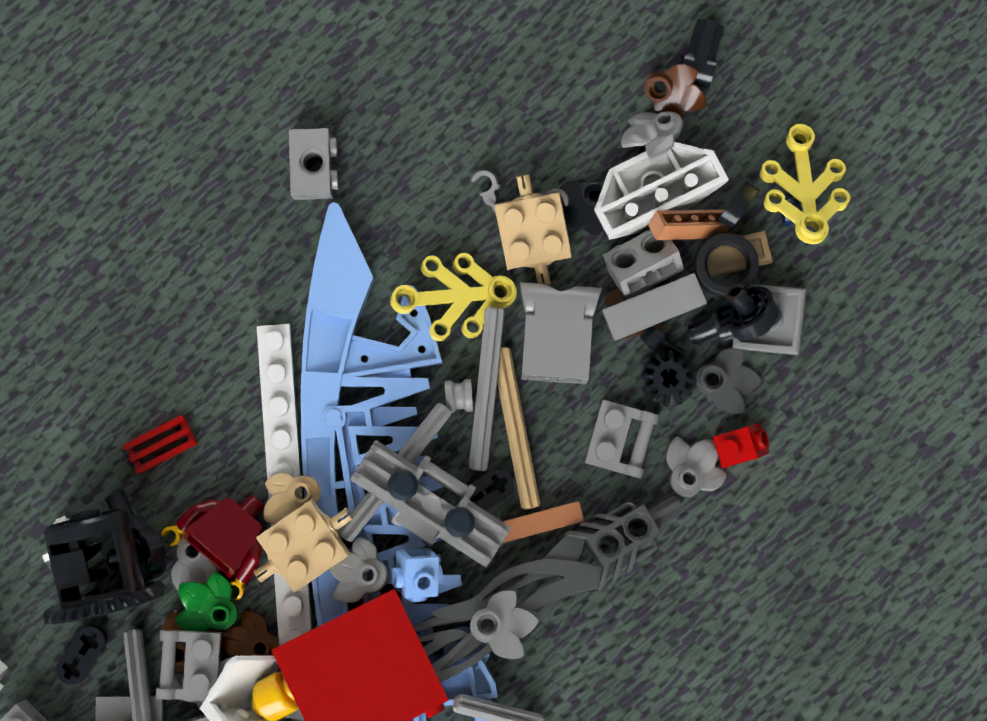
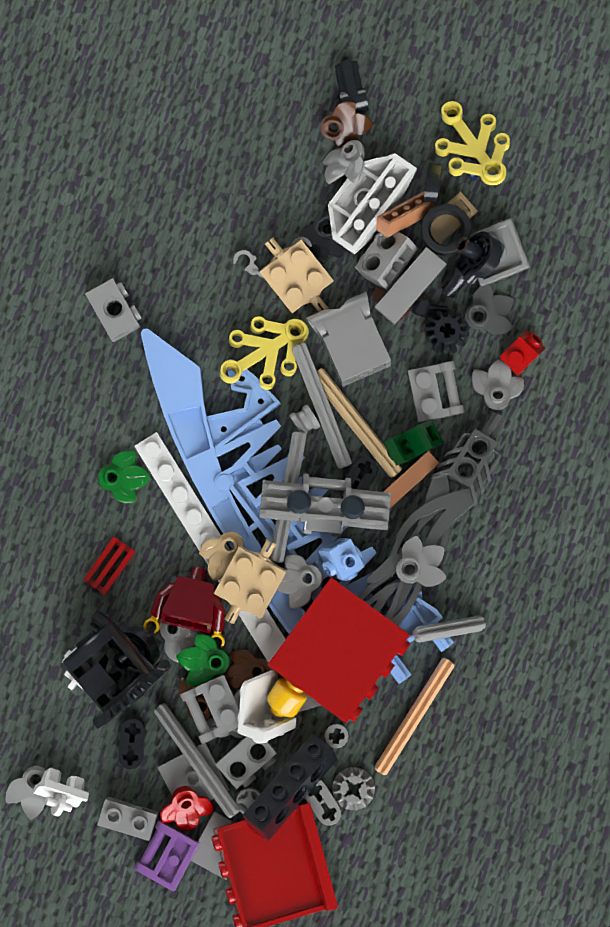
camera: 25 degrees left, 0 degrees up
(231, 357) = (127, 477): none -> green plate
(566, 484) = (413, 443): none -> dark green brick

